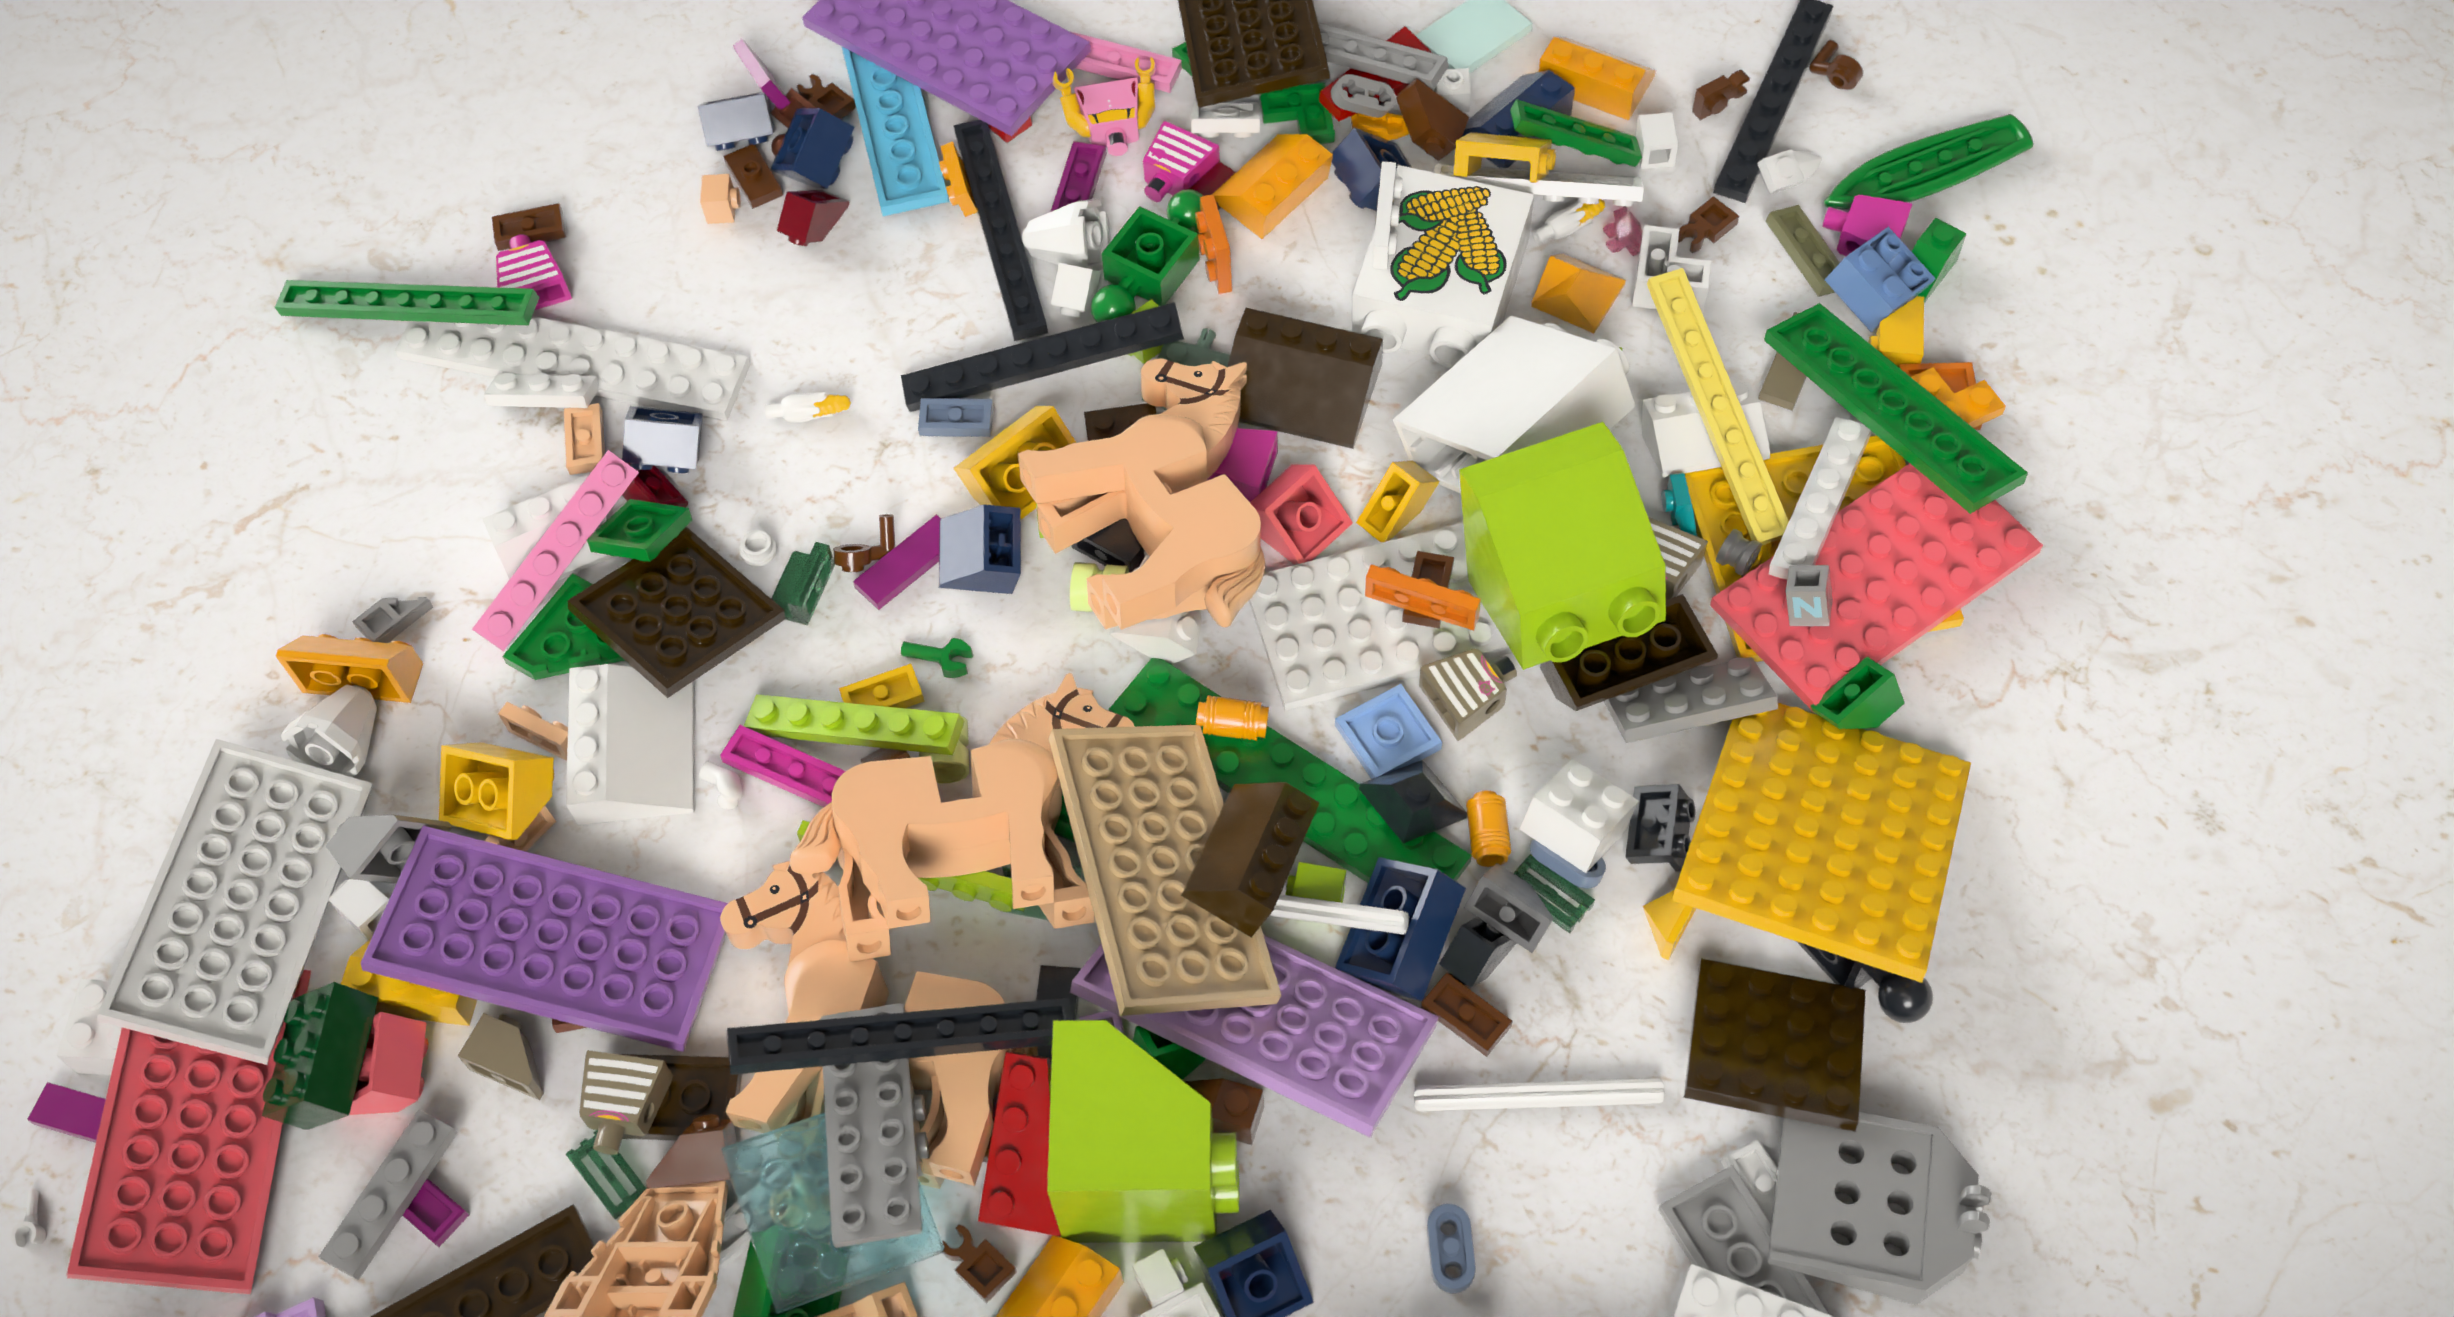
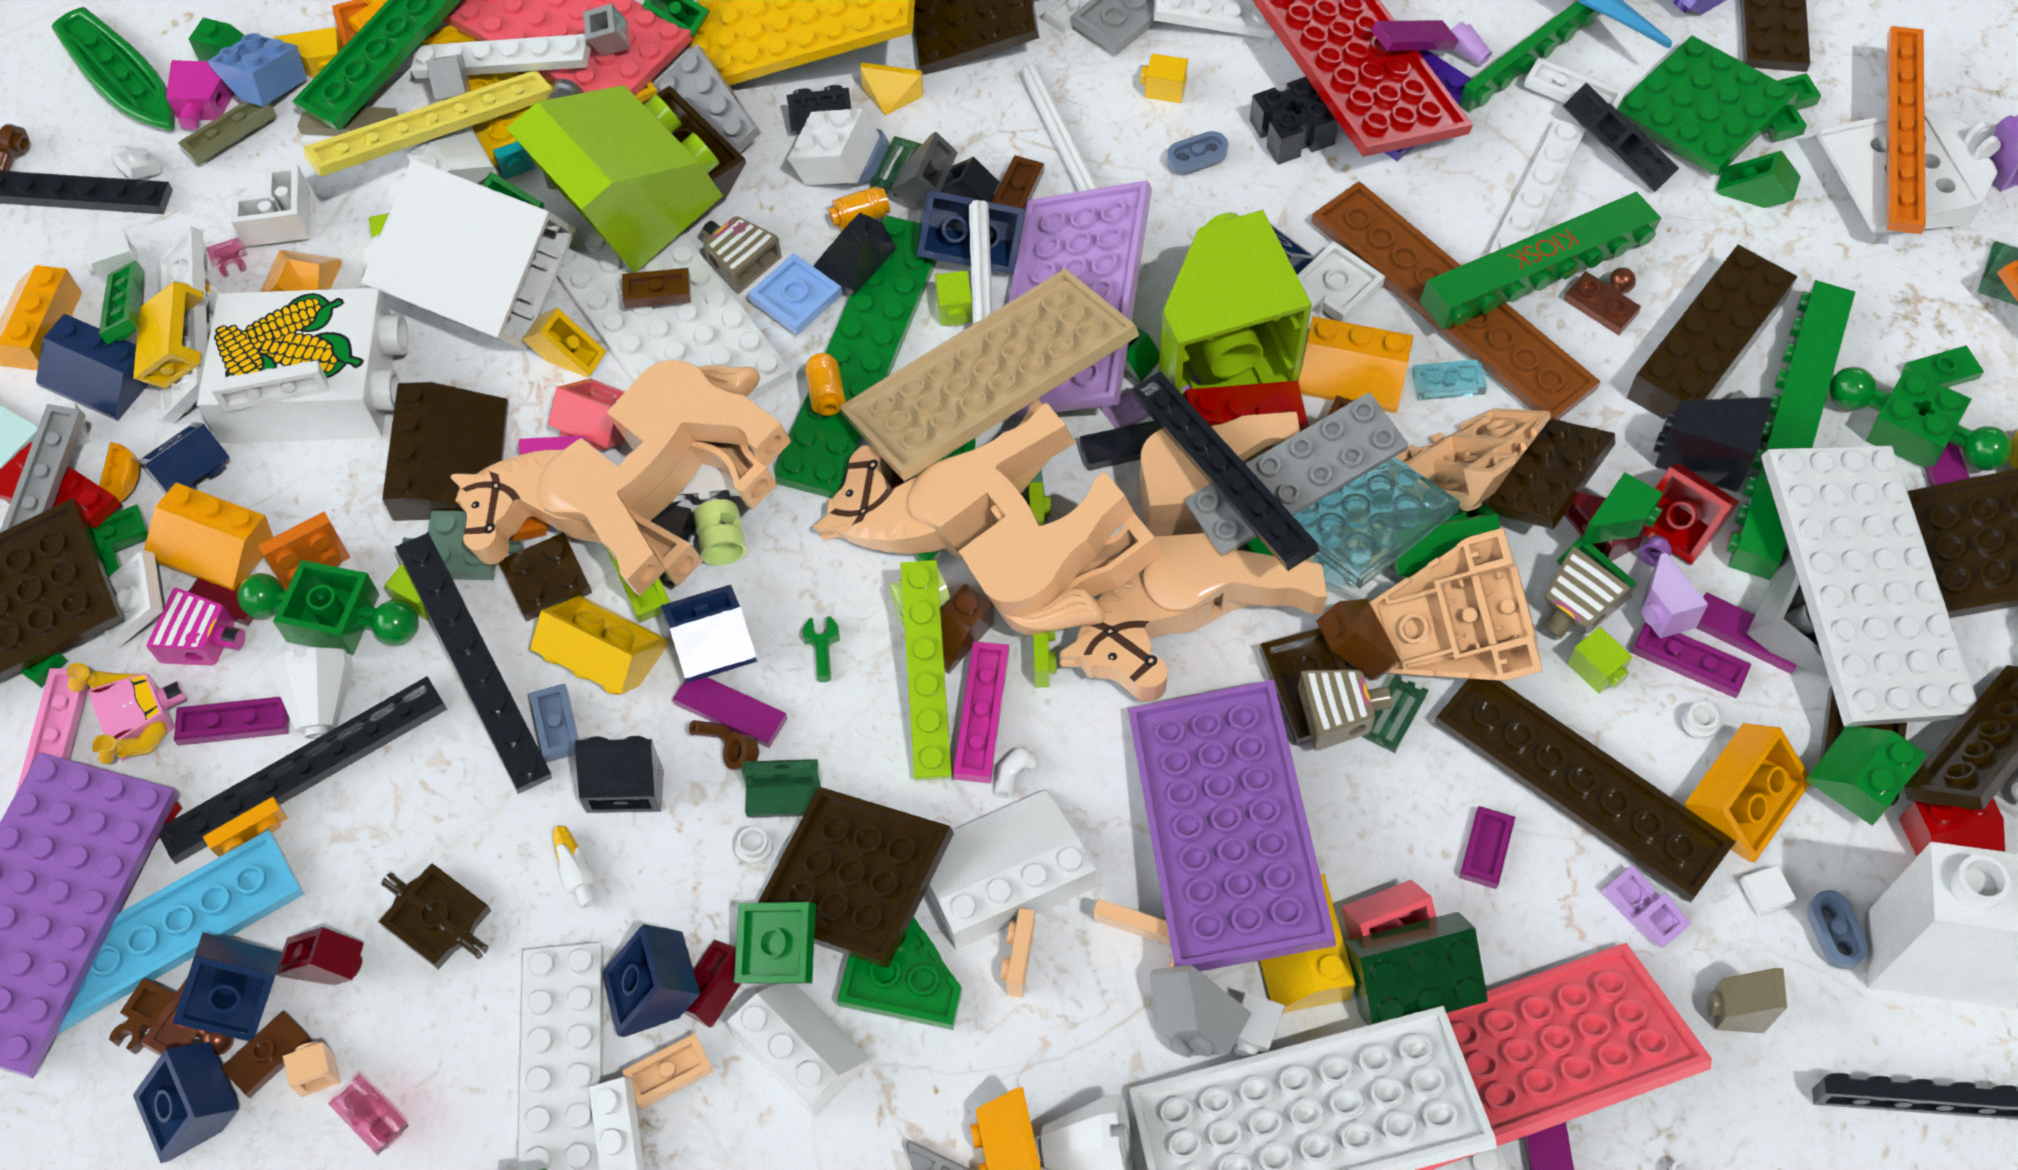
camera: 110 degrees left, 0 degrees up
(388, 1195) = (1498, 866): light grey plate -> none
(493, 788) = (1102, 946): yellow slope -> none
(502, 1054) = (1339, 833): dark tan slope -> none
(555, 551) = (822, 1014): bright pink plate -> none
(656, 227) = (369, 1115): none -> clear pink hips
(761, 74) = (121, 1086): tile -> none
(811, 299) = (434, 916): none -> dark brown plate
(867, 451) = (619, 775): none -> black slope
(890, 689) = (879, 672): yellow plate -> none
(1074, 289) = (379, 661): white brick -> none
(1233, 1106) = (1153, 293): reddish brown slope -> none
(1250, 853) = (953, 315): dark brown slope -> none
(1363, 93) = (95, 476): light grey beam -> none
(1422, 596) = (674, 273): orange plate -> none
(1431, 119) = (116, 421): reddish brown slope -> none
(1589, 1251) = (1165, 78): none -> yellow brick
(1708, 221) = (205, 199): reddish brown plate -> none
(1714, 96) = (53, 224): reddish brown plate -> none
(1799, 441) = (448, 76): none -> light grey brick

